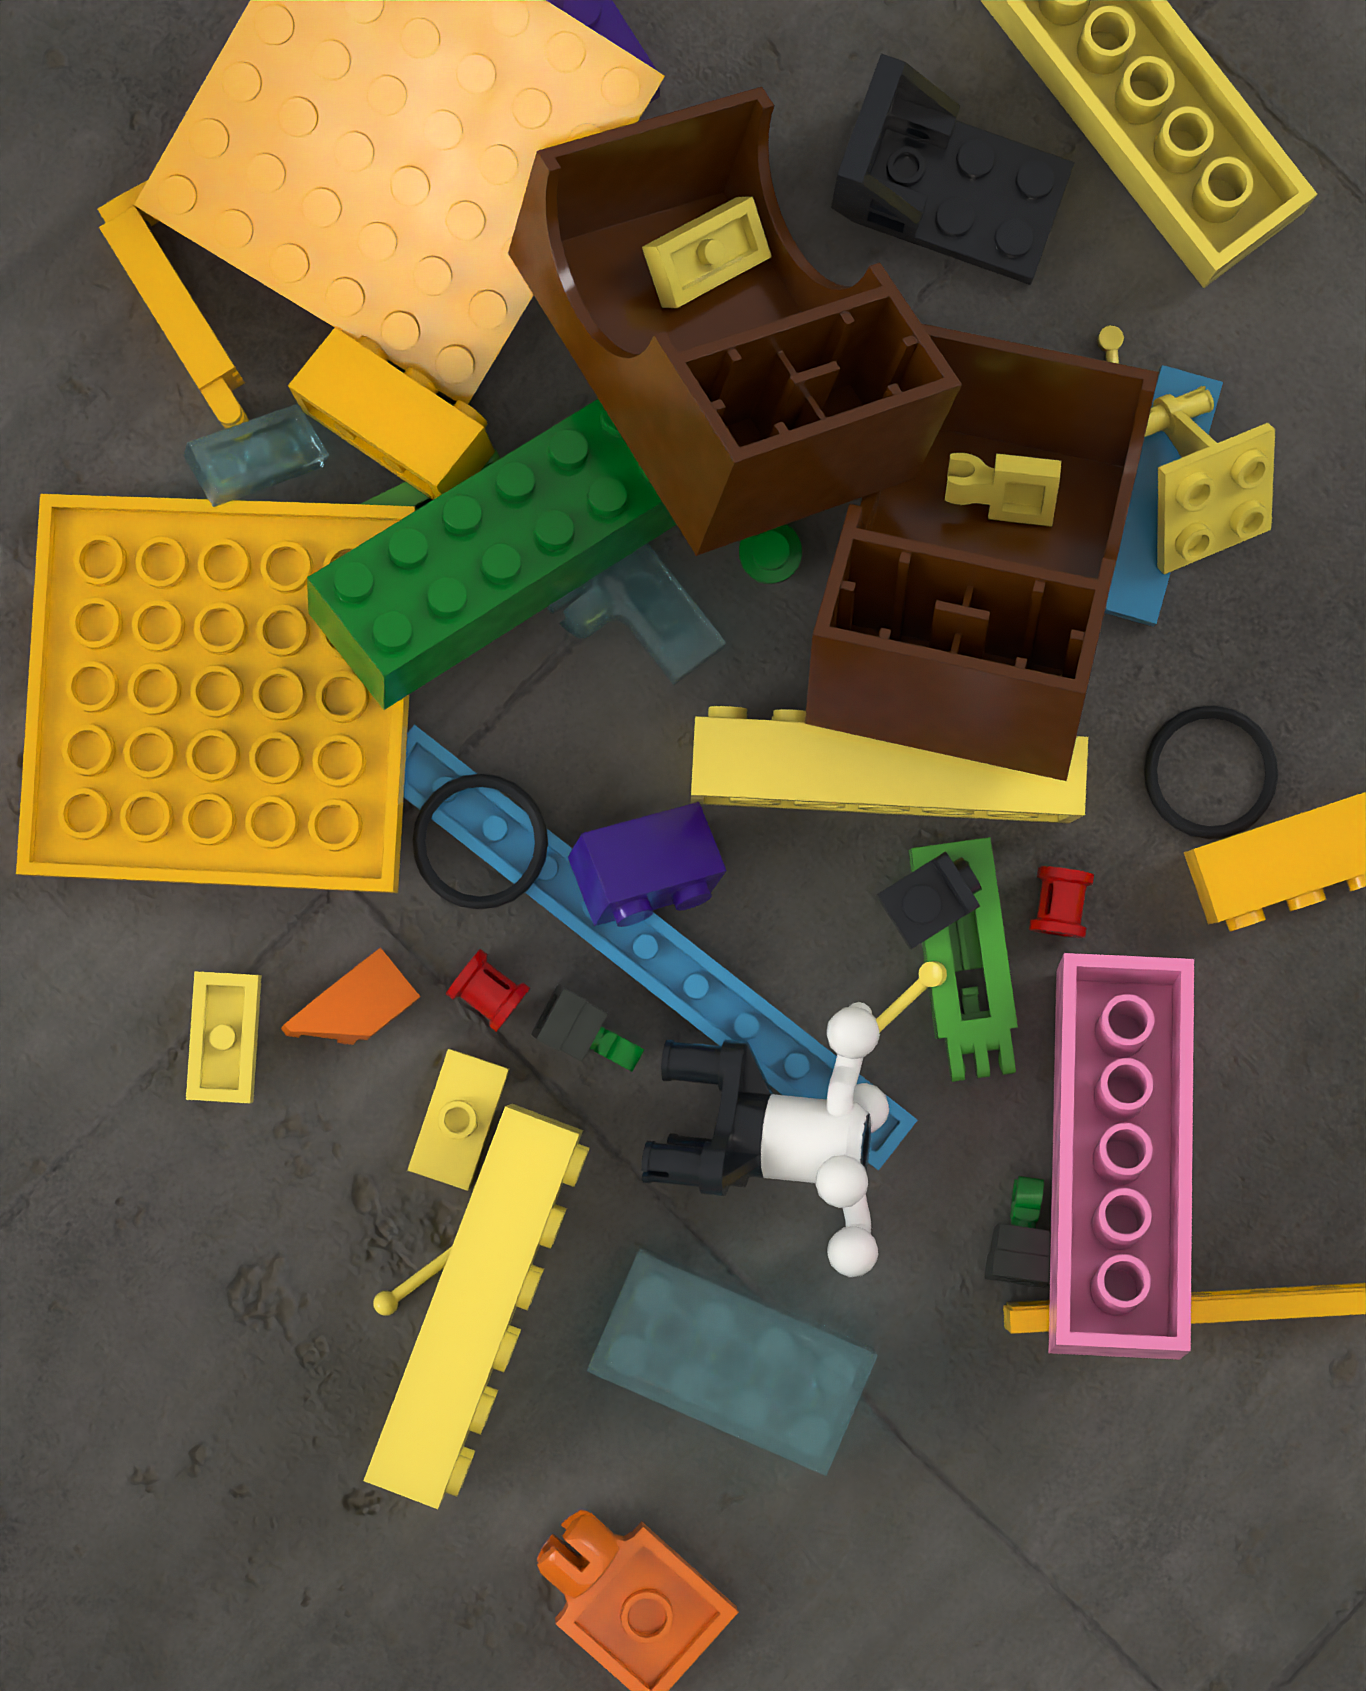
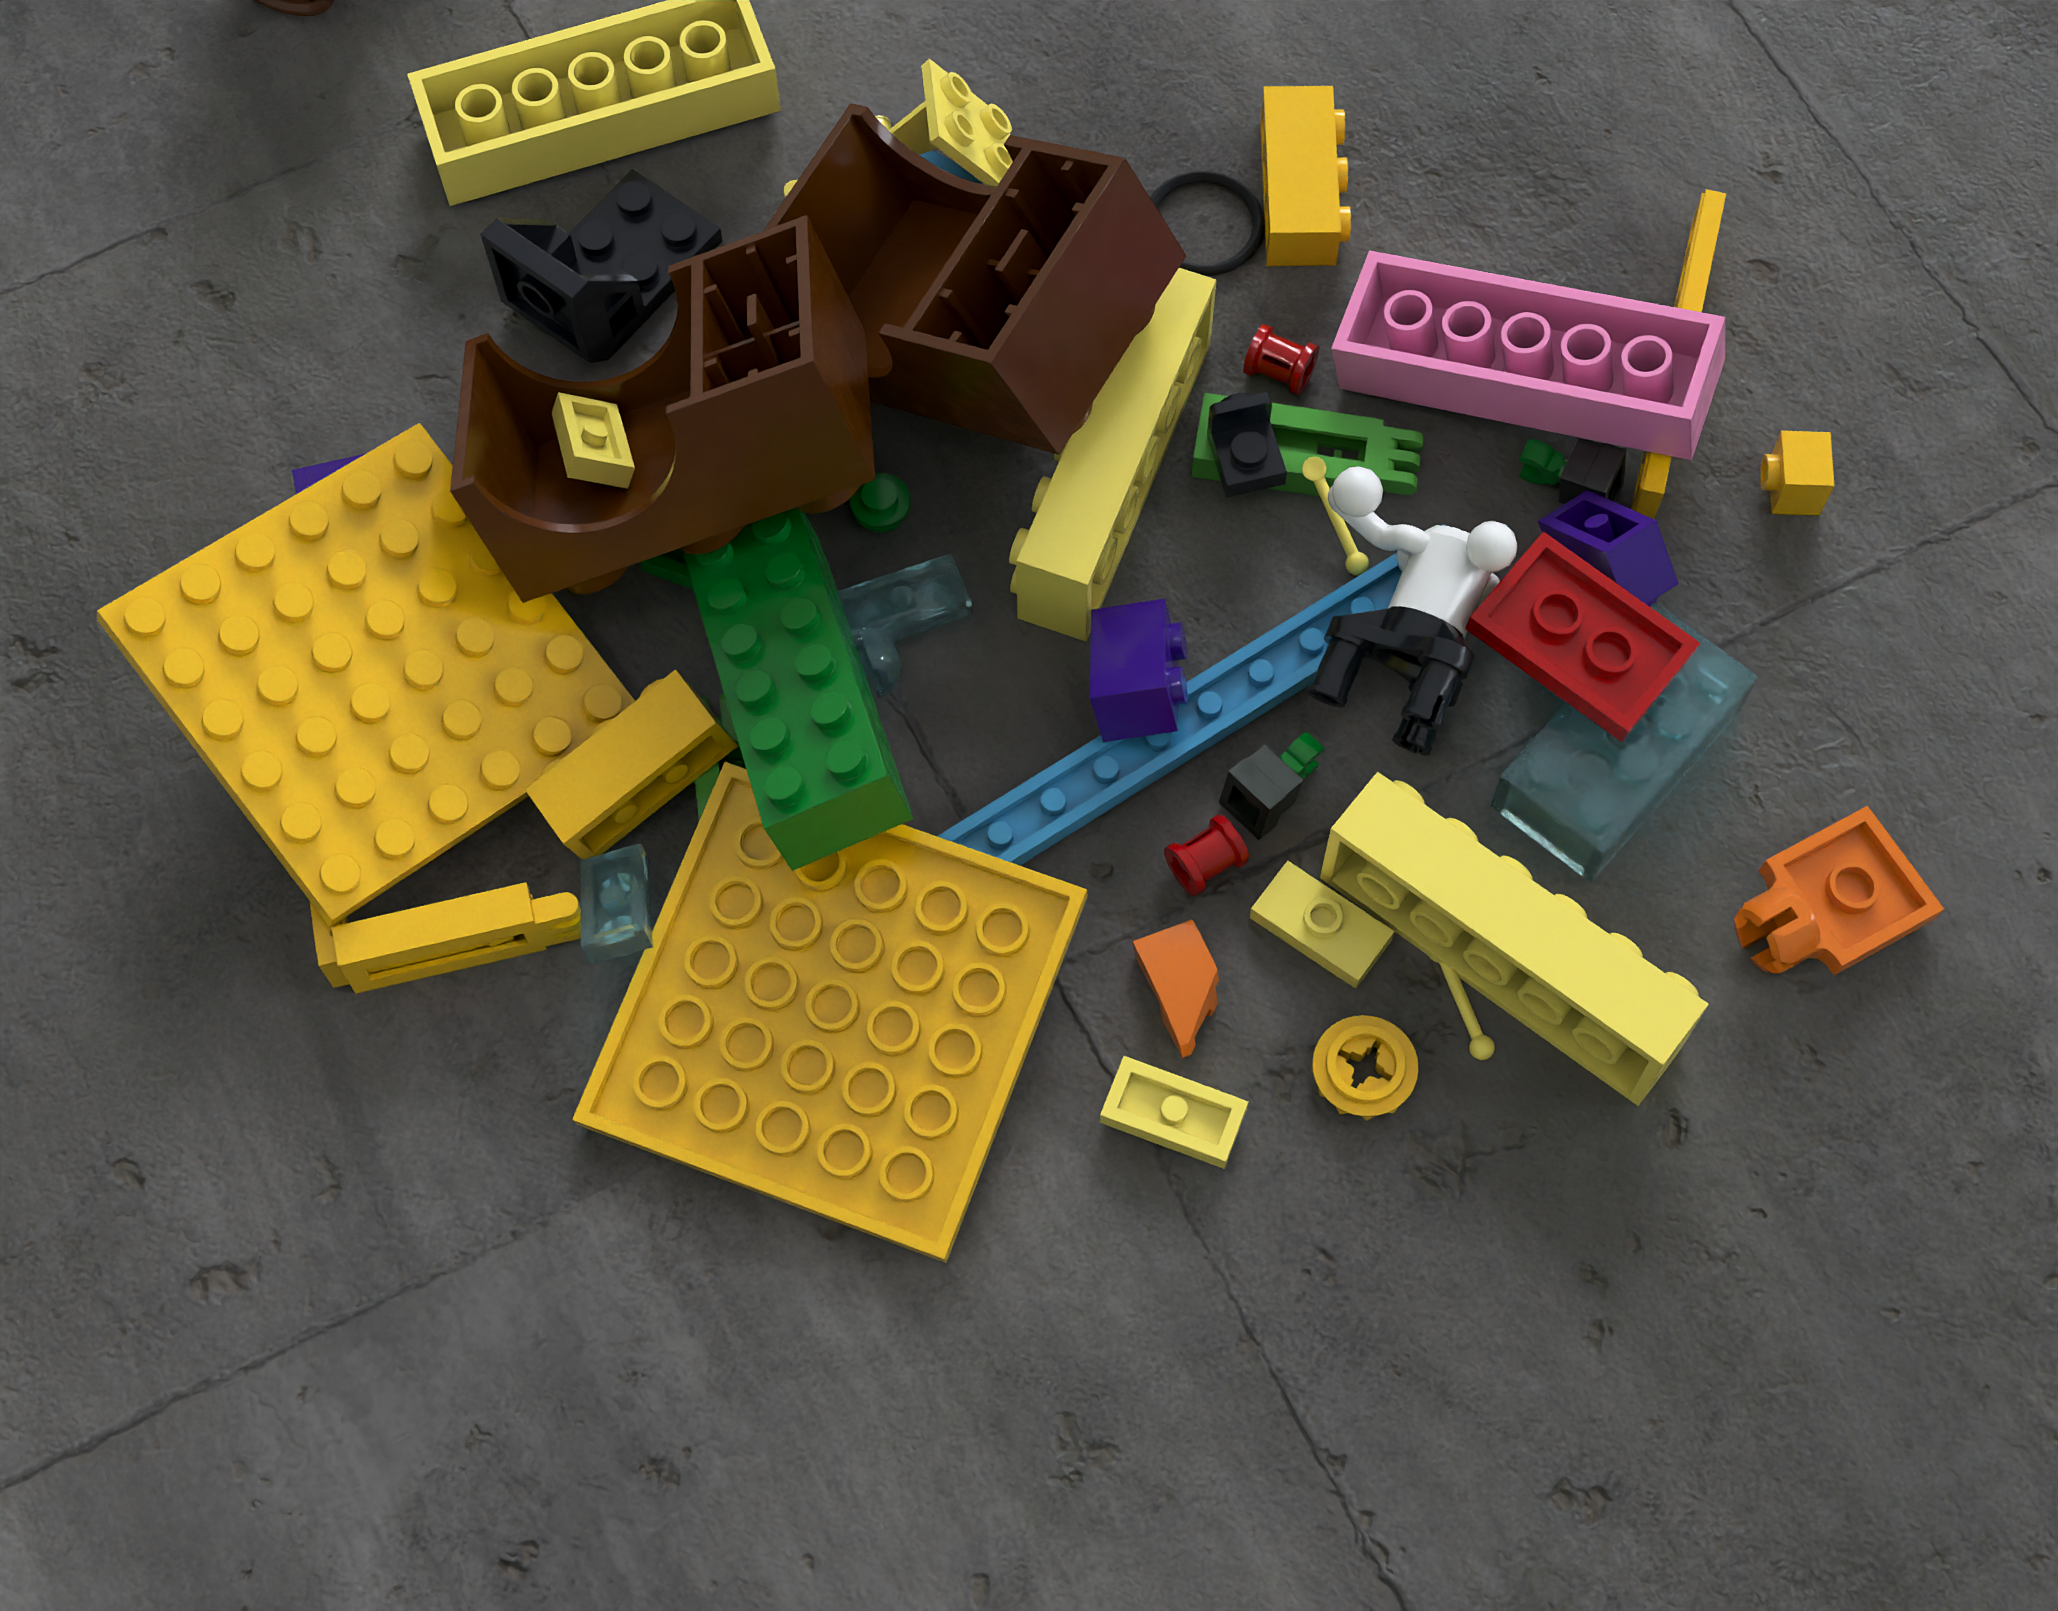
camera: 70 degrees left, 20 degrees down
(300, 1217) = (1352, 1040): none -> yellow gear
(527, 878) = (1062, 869): black tyre -> none
(792, 1294) = (1582, 636): none -> red plate
(921, 1294) = (1615, 542): none -> dark purple brick
(1015, 489) = (906, 265): light yellow plate -> none
(1095, 1462) = (1799, 473): none -> yellow plate

